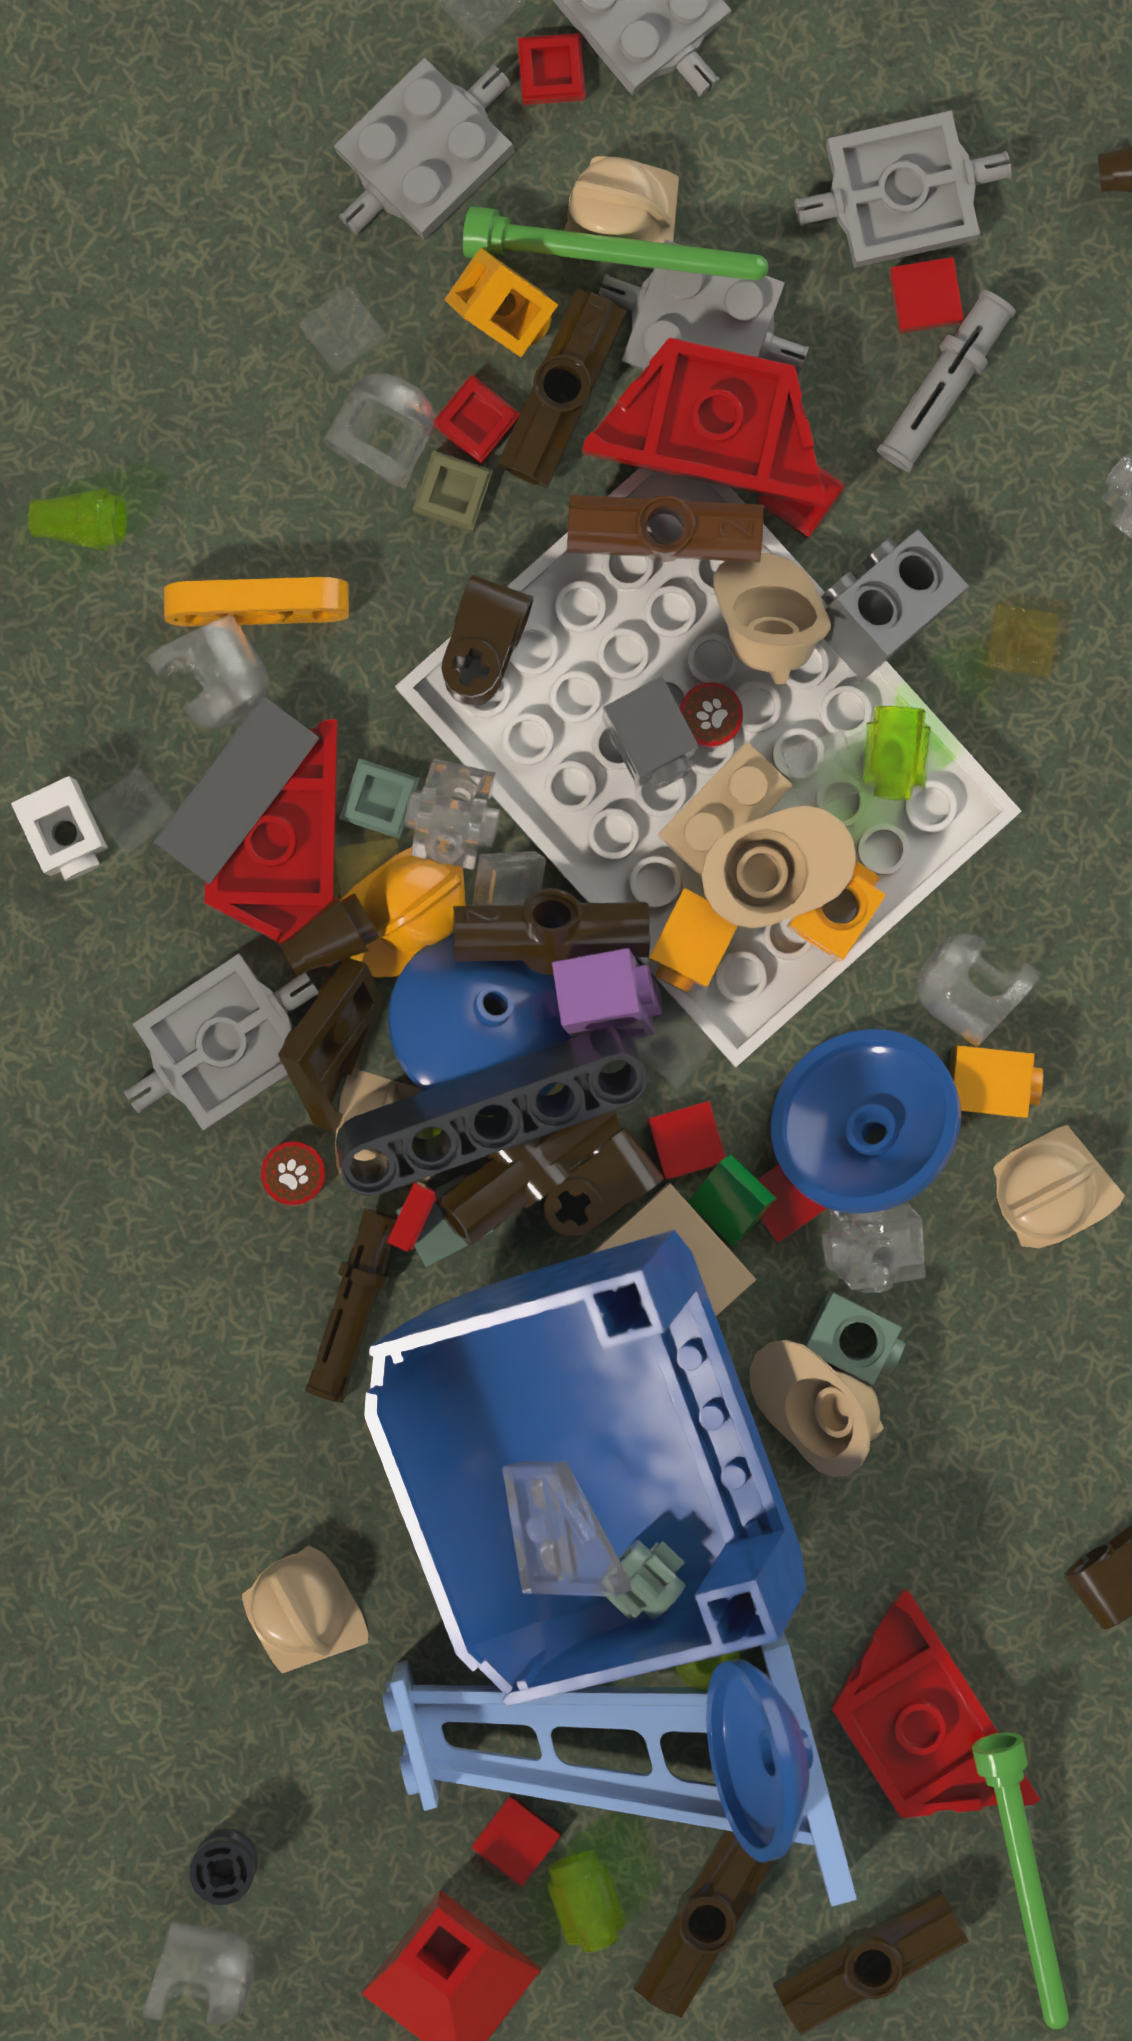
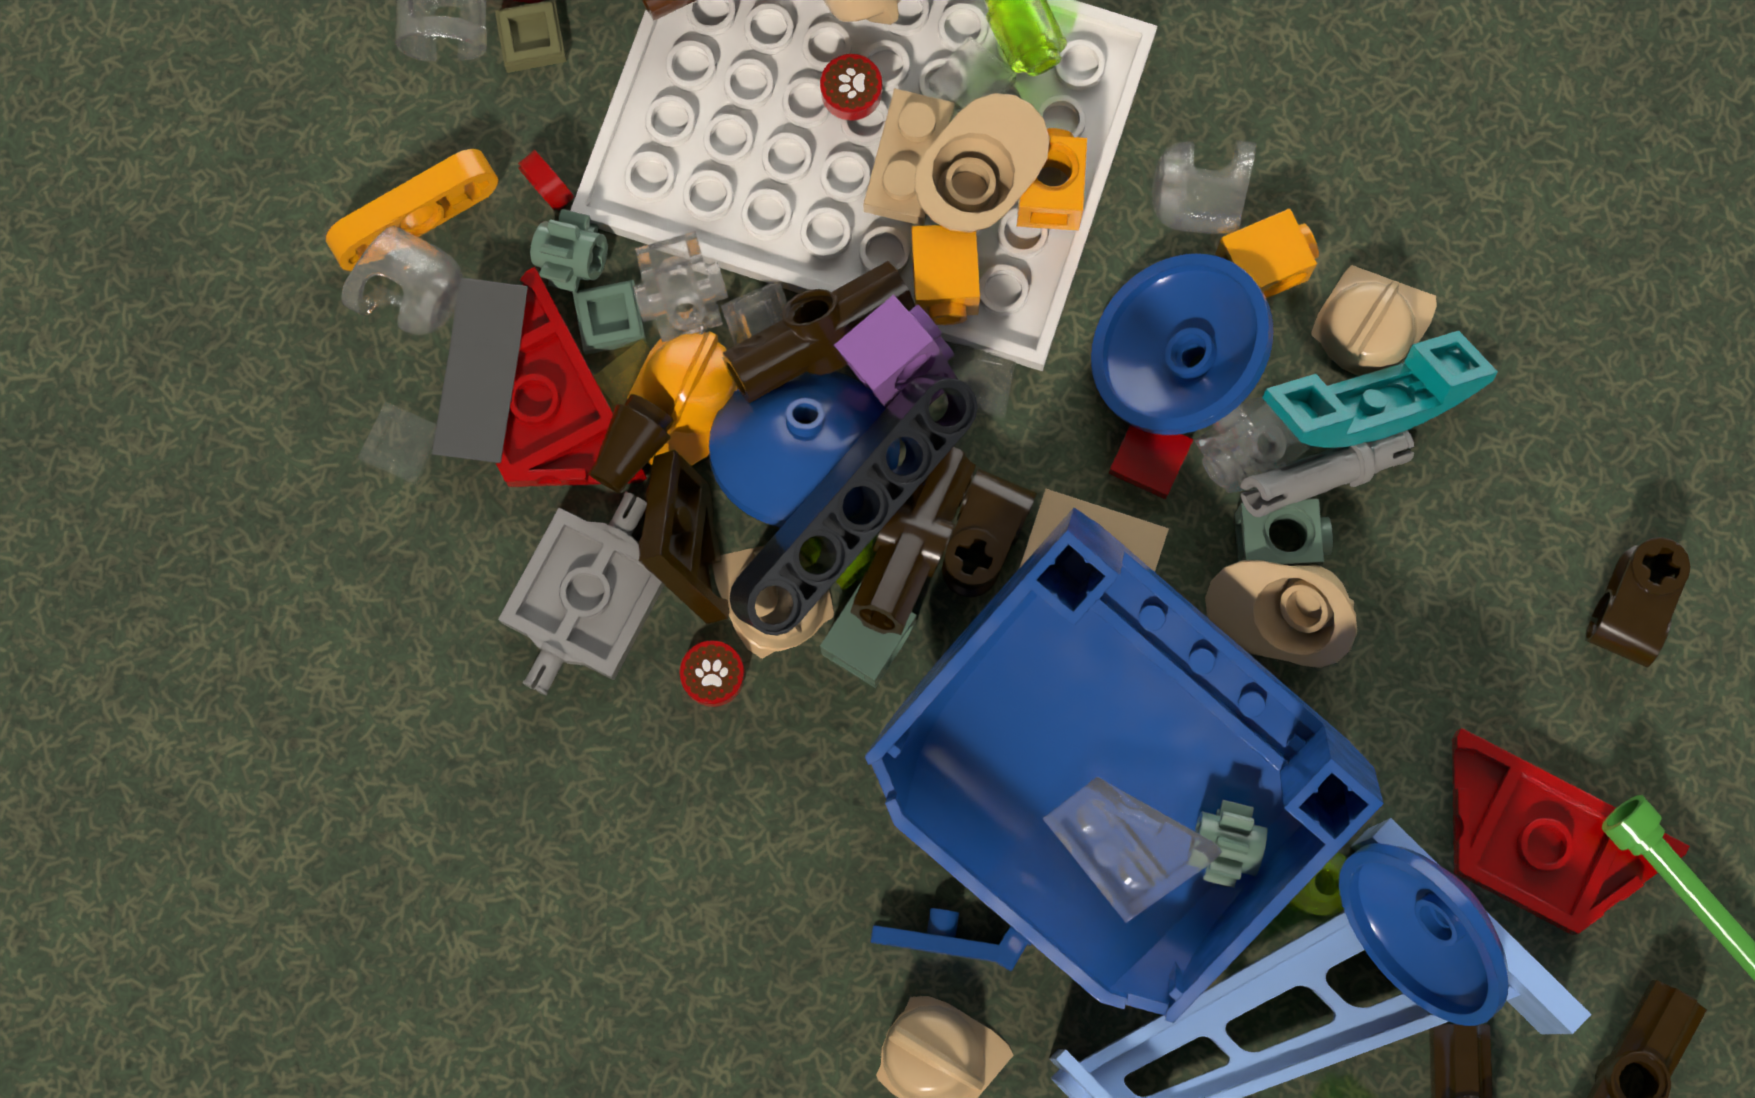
camera: 25 degrees left, 10 degrees down
(39, 818) = (329, 472): white brick -> none
(83, 519) = (224, 224): clear neon green cone -> none
(348, 1321) = (832, 769): dark brown pin -> none
(361, 1515) = (942, 940): none -> blue piece
(375, 722) = (569, 250): none -> sand green gear
(390, 642) = (545, 181): none -> red tile
(413, 1216) = (837, 634): red tile -> none
(486, 630) = (621, 123): dark brown piece -> none
(651, 735) = (808, 116): dark grey brick -> none
(687, 1140) = (1038, 454): red tile -> none
(731, 1200) = (1107, 476): green tile -> none
(949, 1307) = (1323, 472): none -> light grey pin
(1014, 1269) = (1383, 402): none -> teal slope

